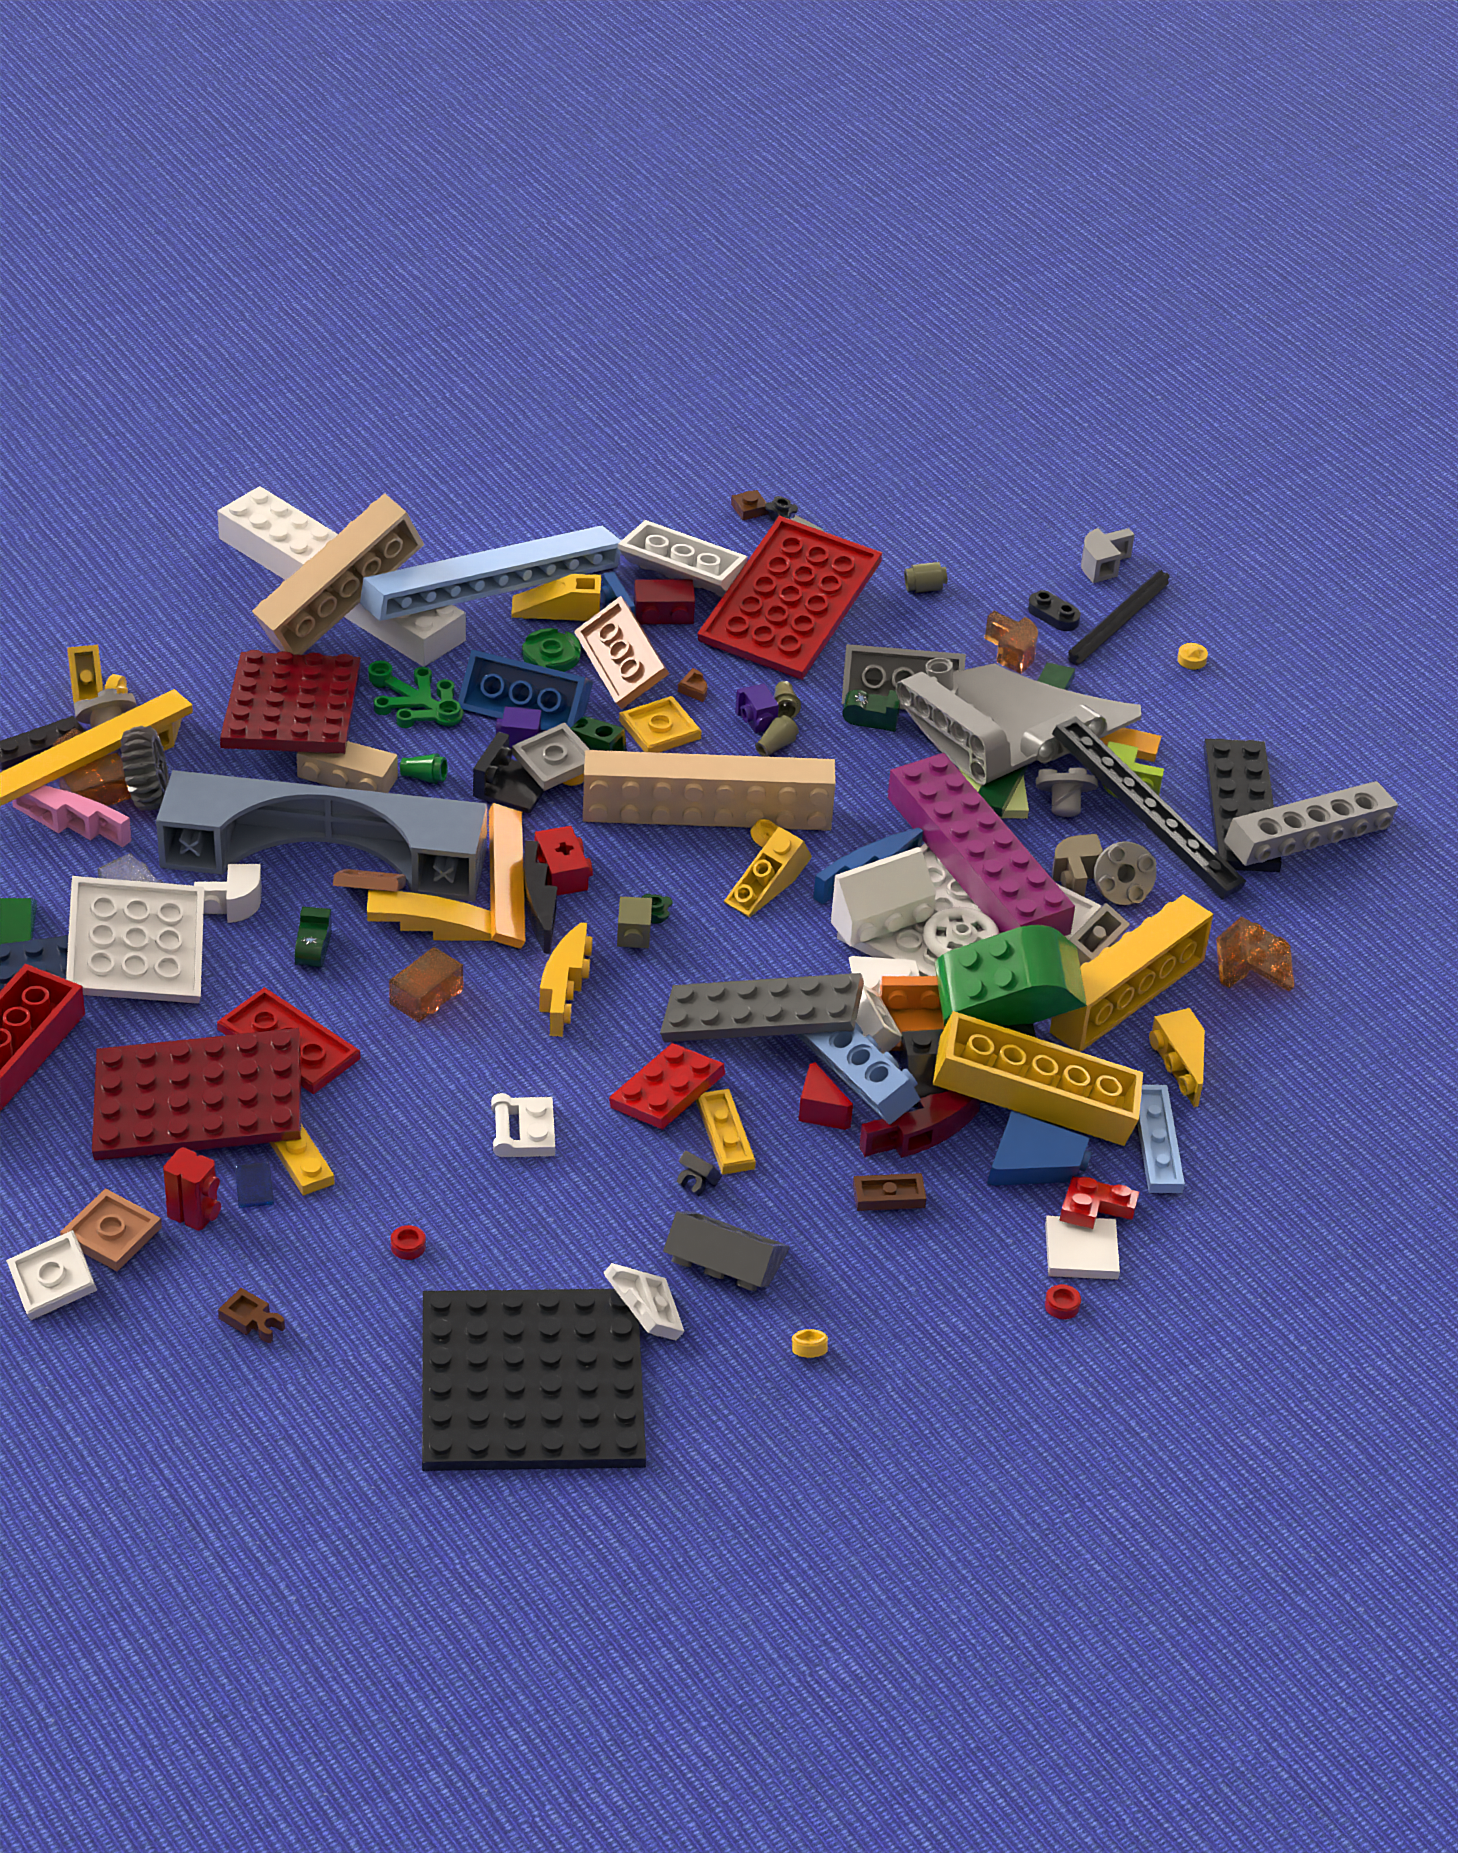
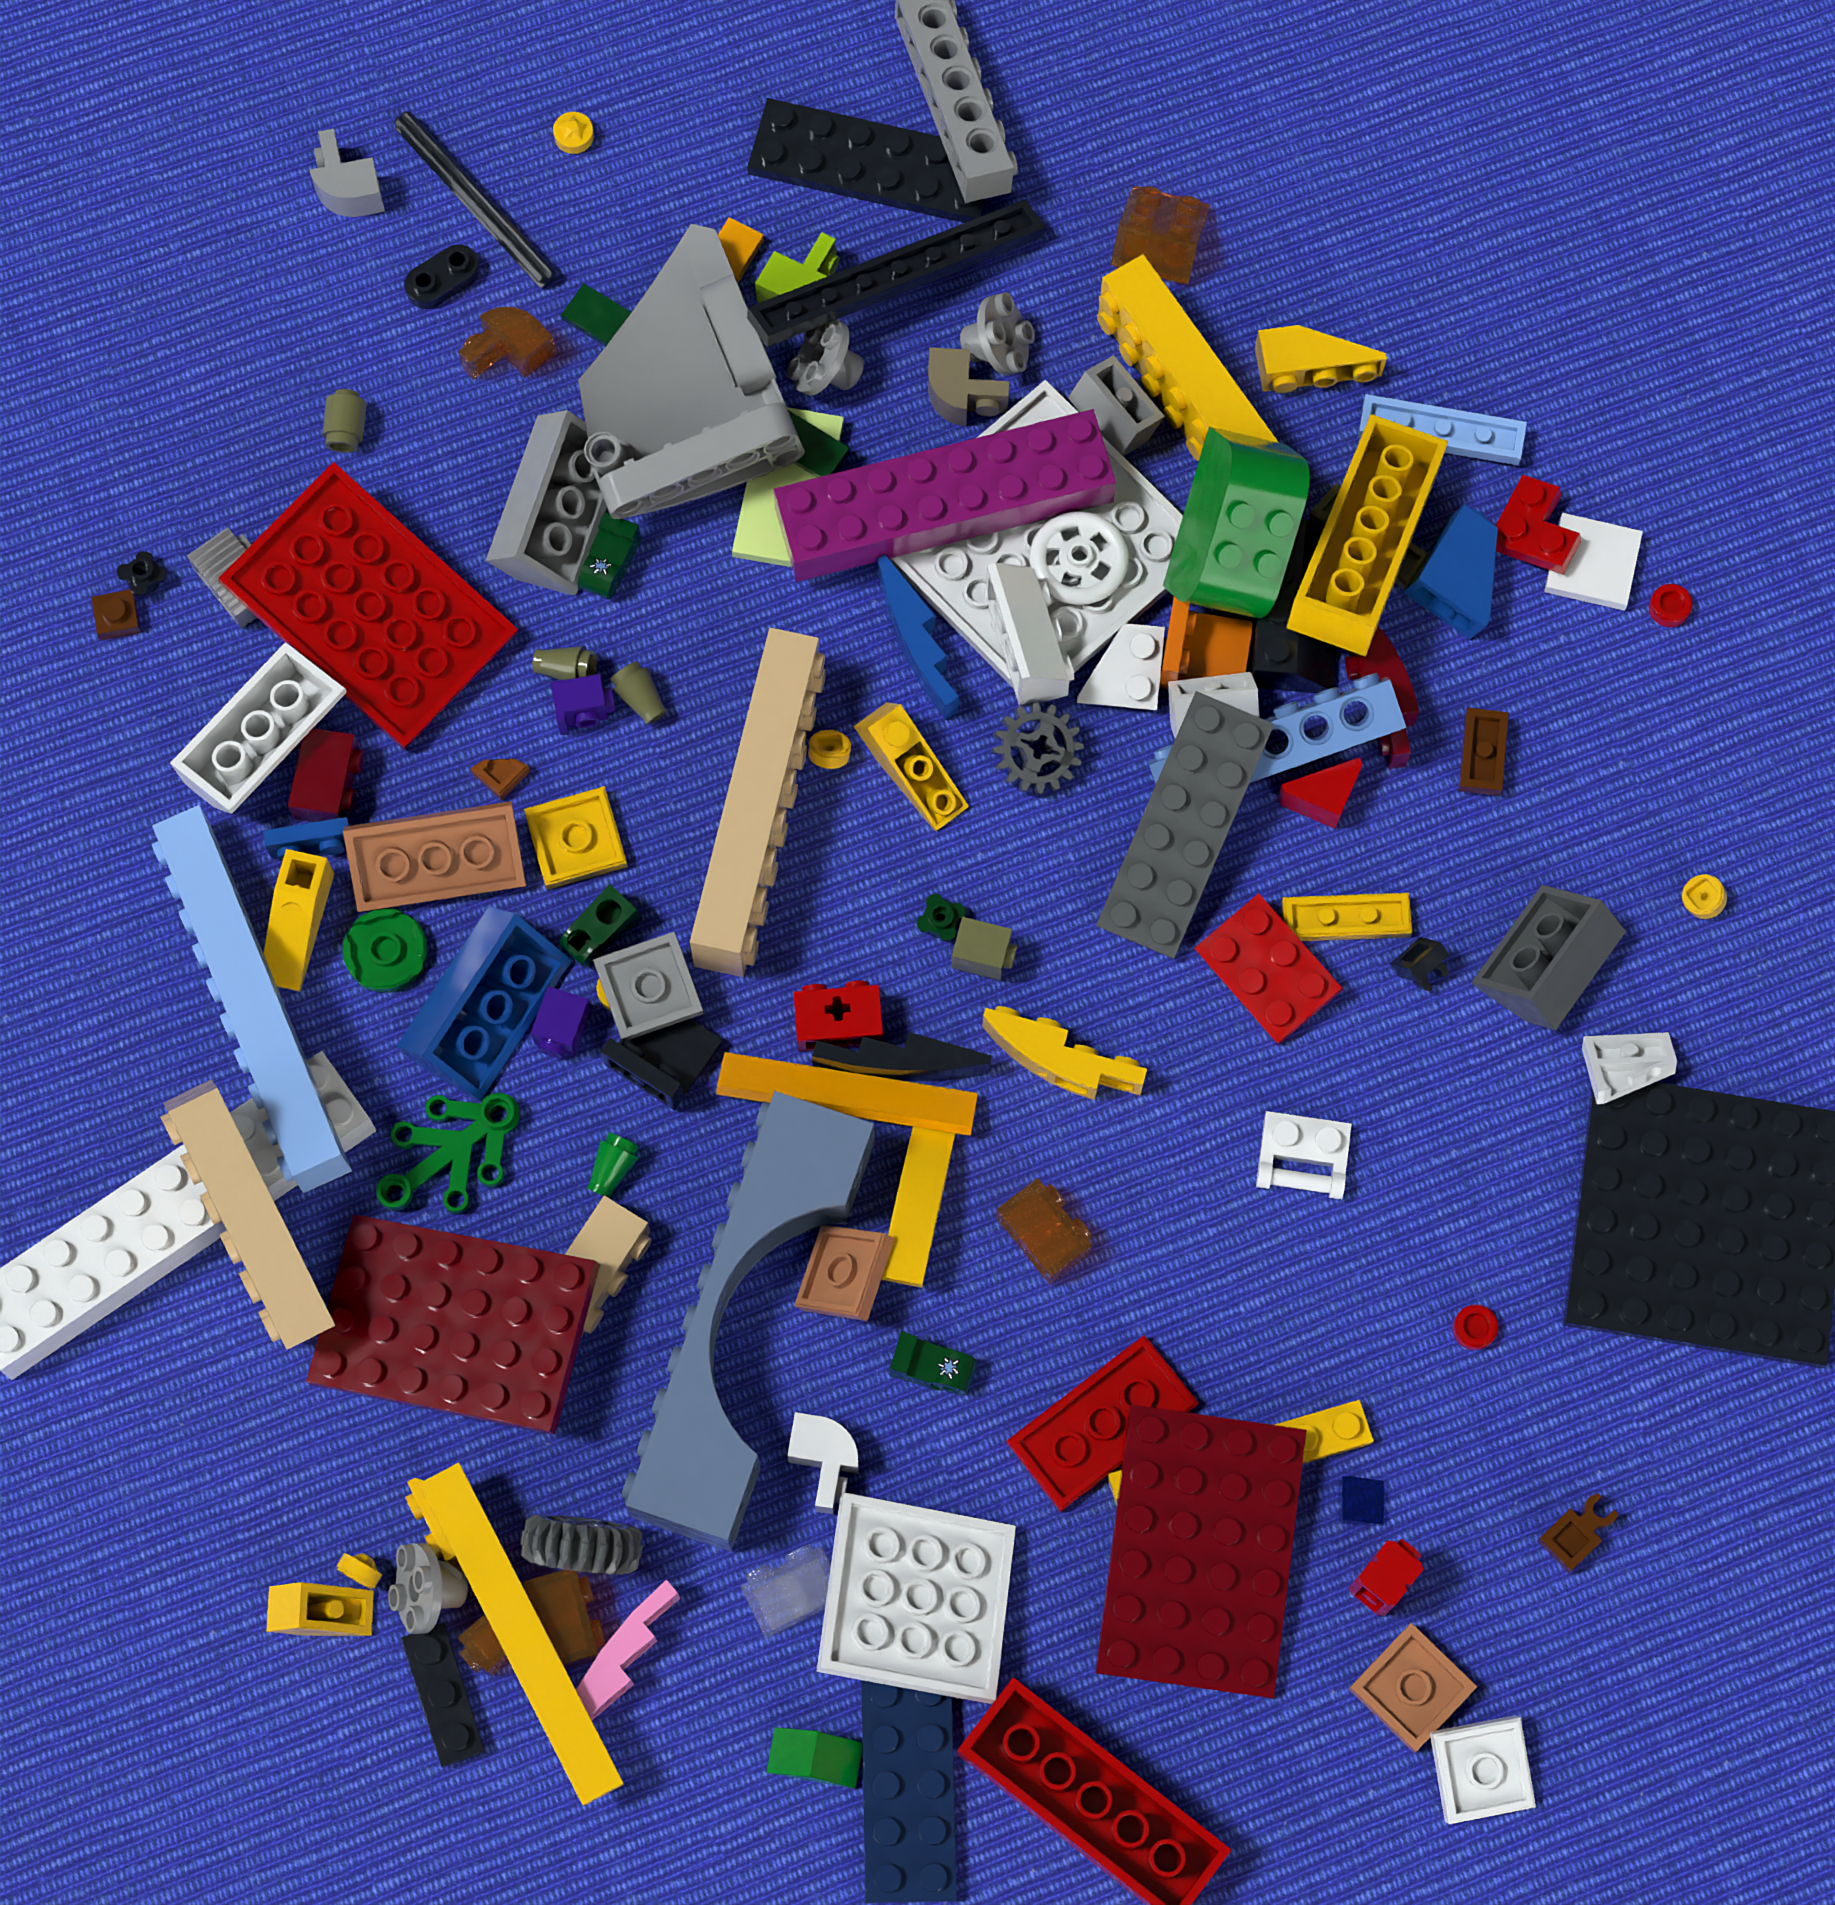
camera: 75 degrees left, 30 degrees up
(801, 934) = (1043, 731): none -> dark grey gear

